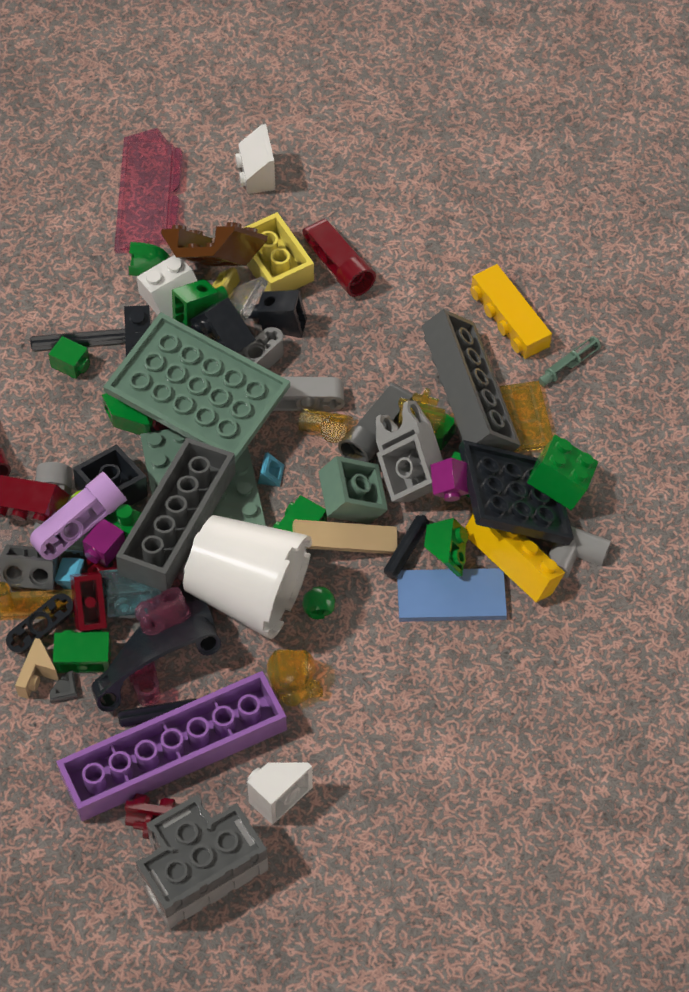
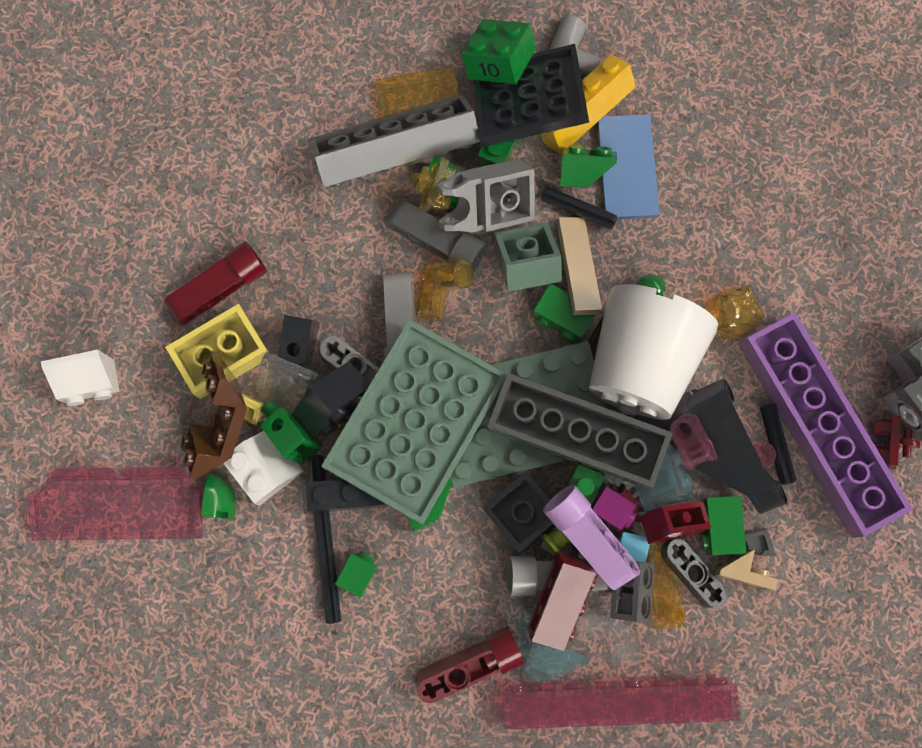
camera: 95 degrees left, 20 degrees up
(271, 471) = (493, 347): medium azure slope -> none
(278, 788) = (863, 318): white slope -> none
(449, 479) = (529, 151): magenta brick -> none
(510, 311) = (290, 104): yellow brick -> none
(570, 361) = (348, 49): sand green piece -> none

